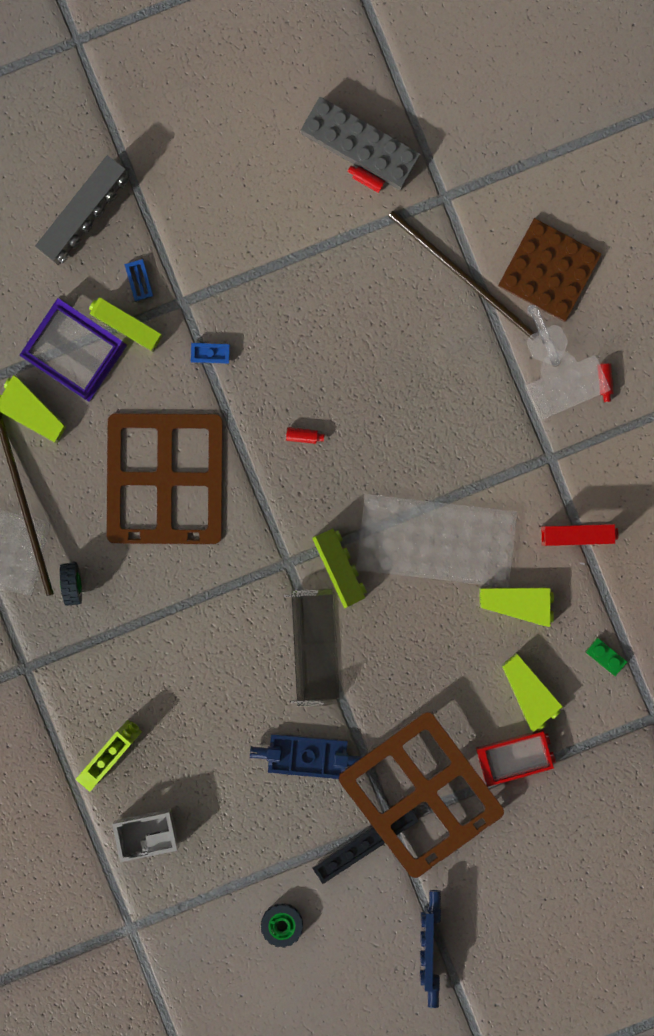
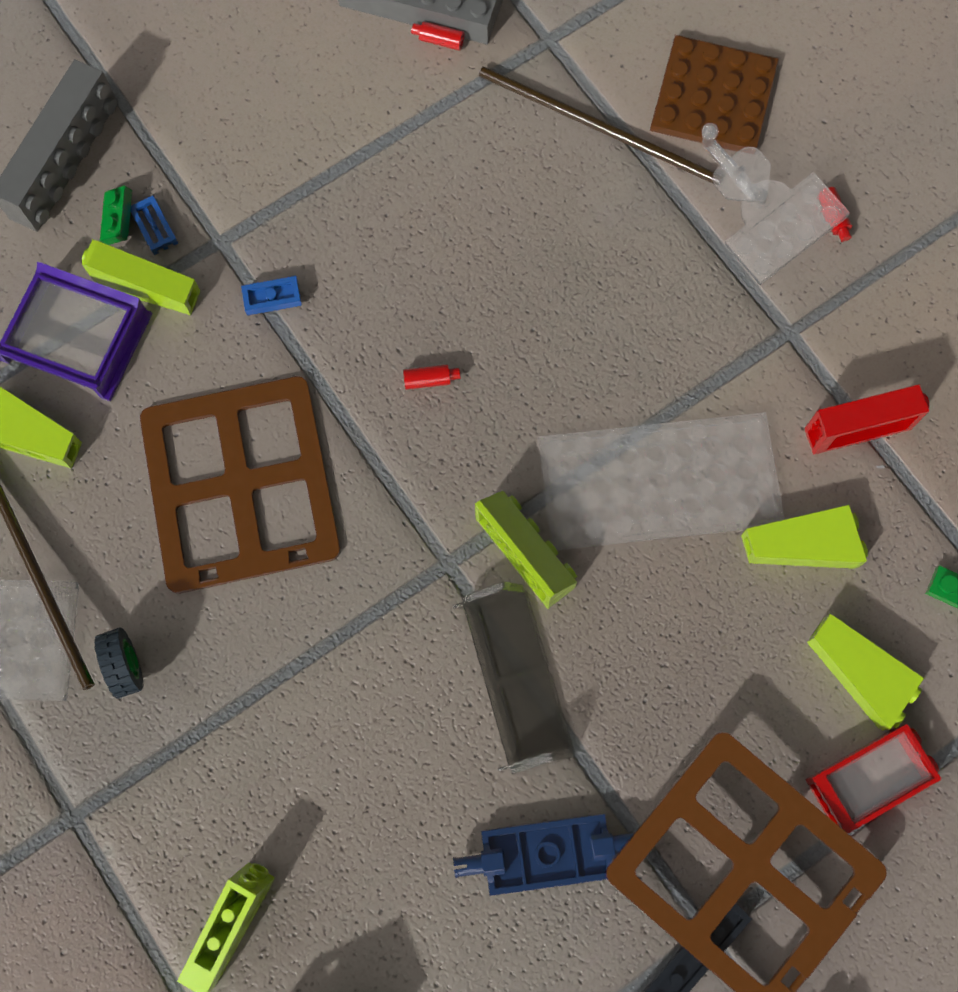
camera: 10 degrees left, 15 degrees down
(114, 268) = (116, 215): none -> green plate

